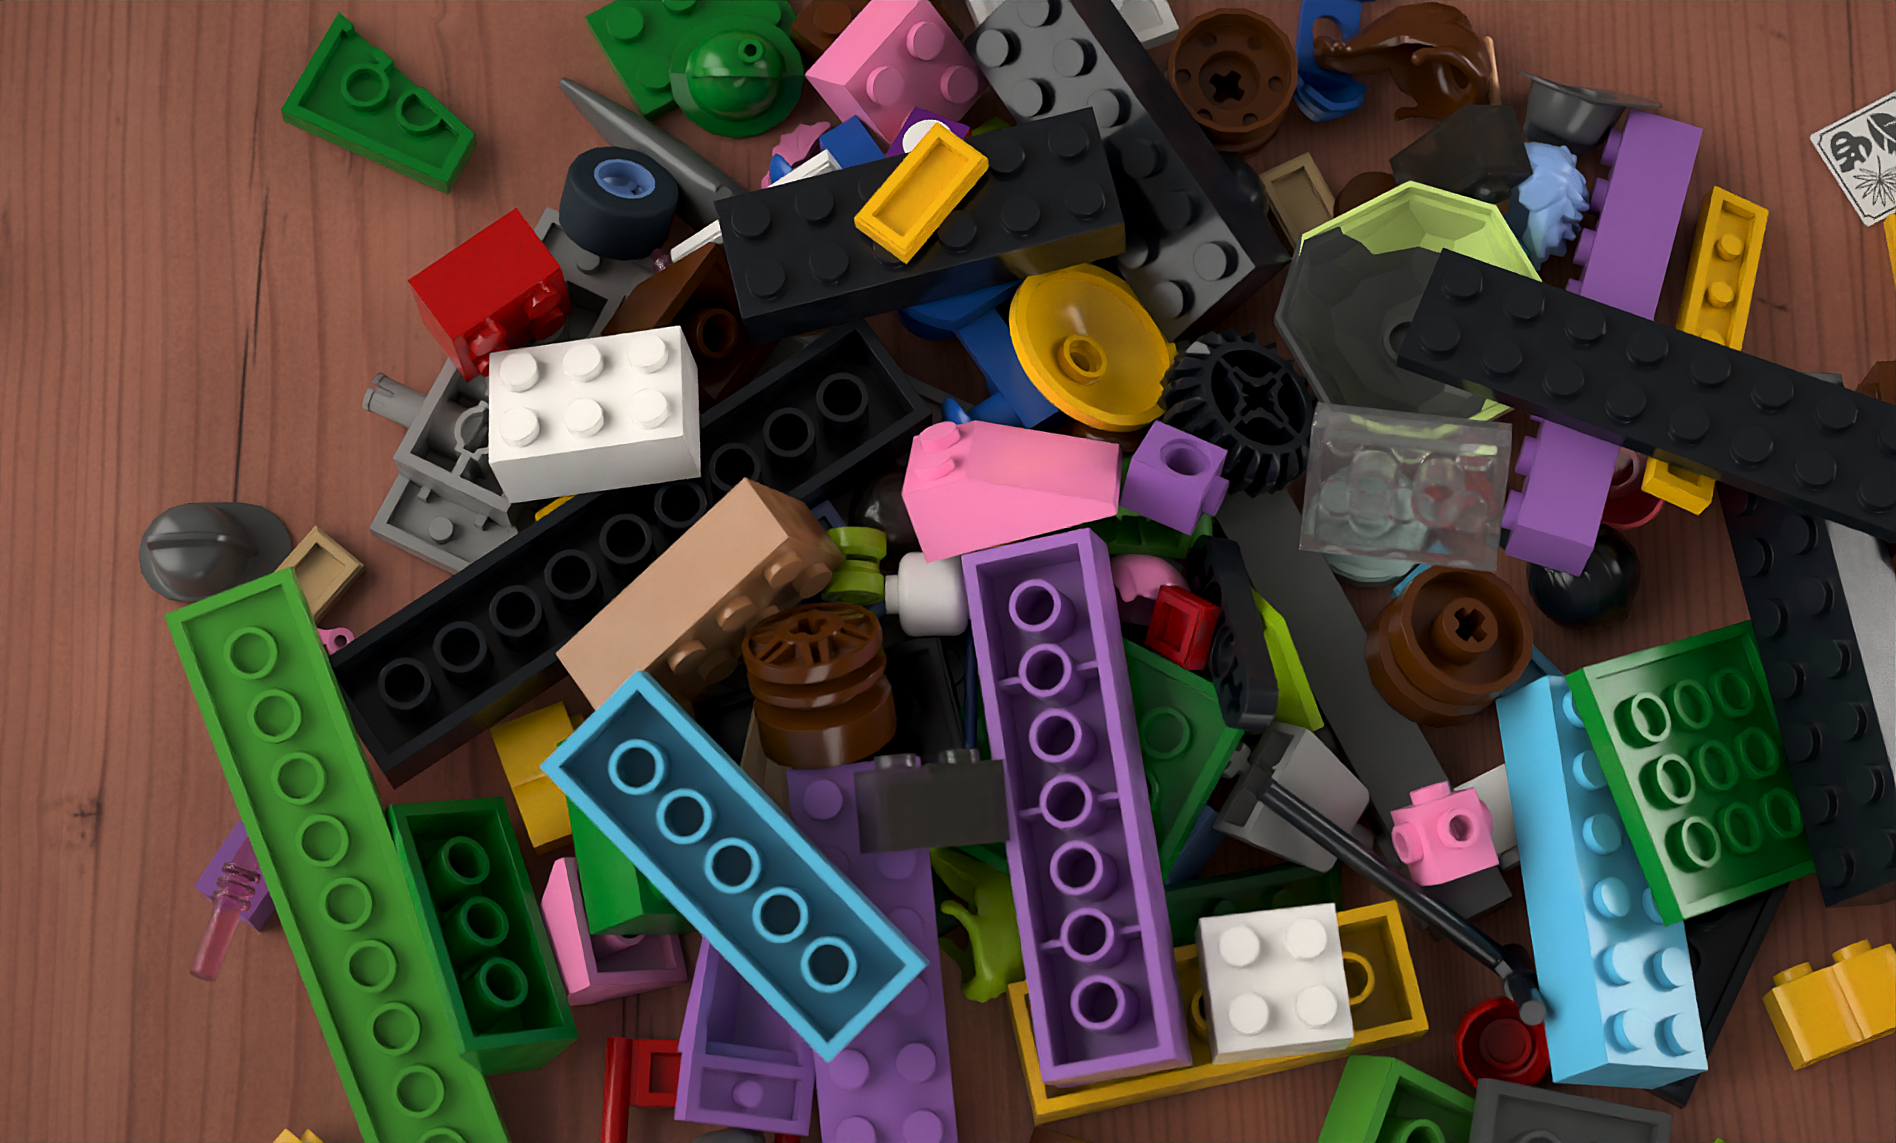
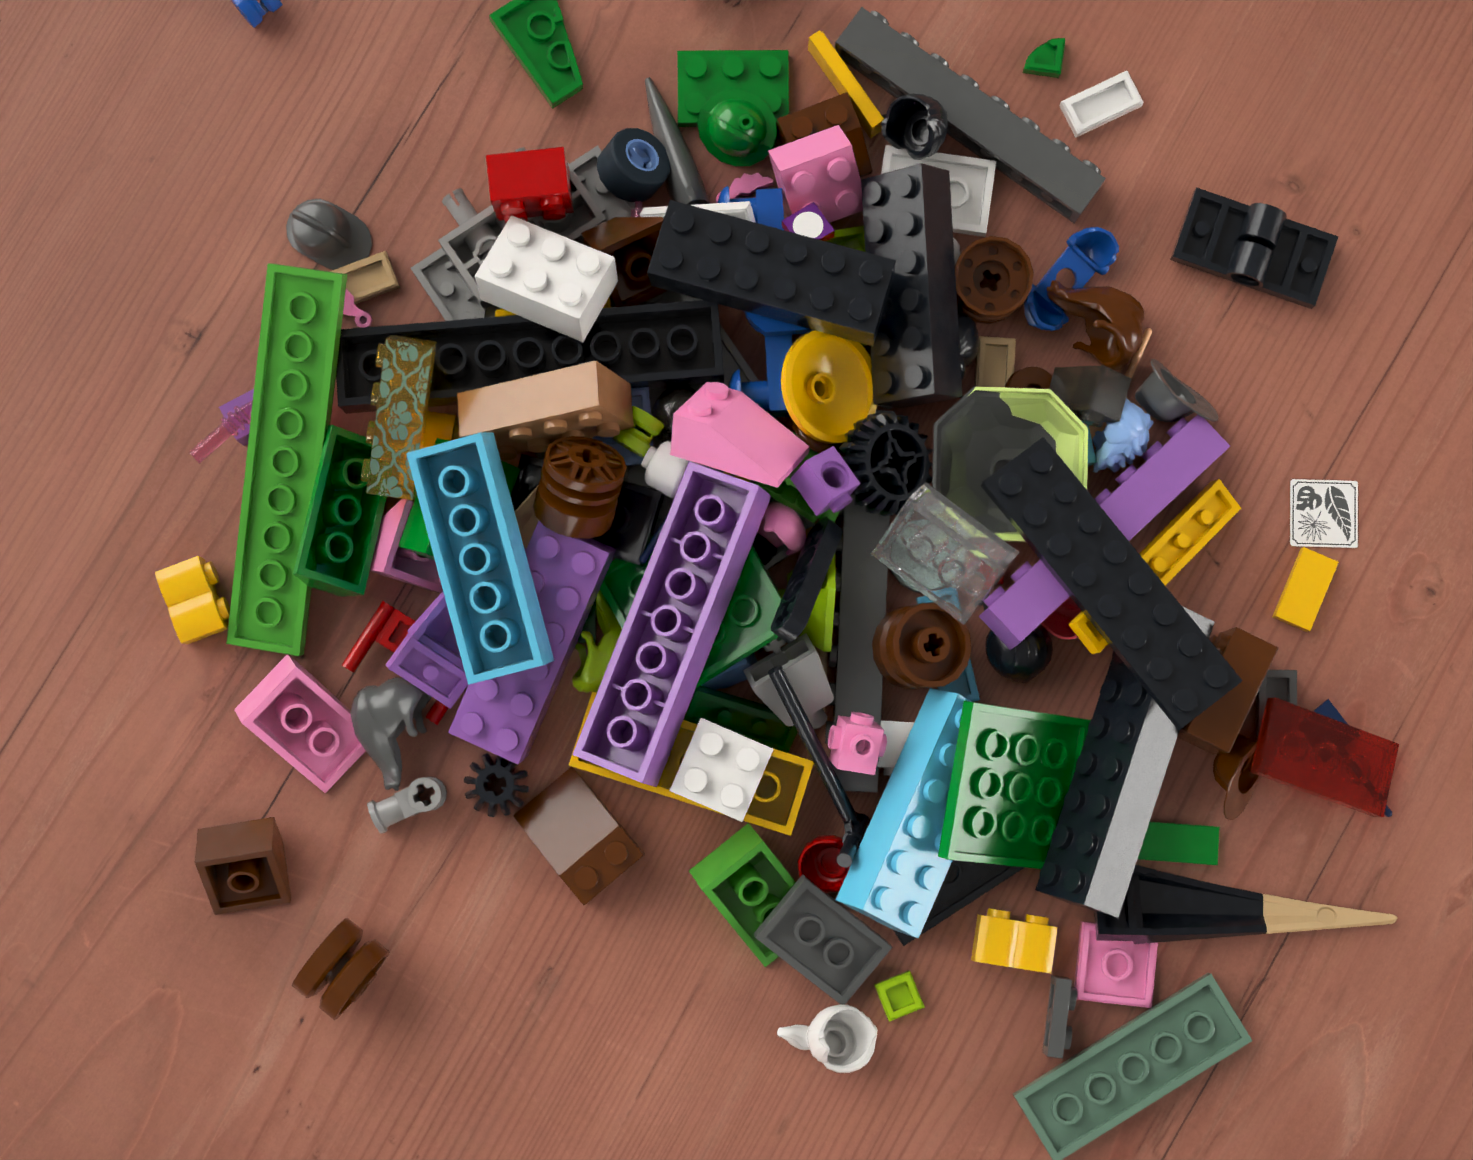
camera: 30 degrees right, 10 degrees up
(491, 732) = (400, 414): none -> clear yellow brick
(921, 192) = (776, 258): yellow tile -> none
(931, 804) = (597, 582): clear smoke brick -> none
(1182, 627) = (784, 561): red tile -> none

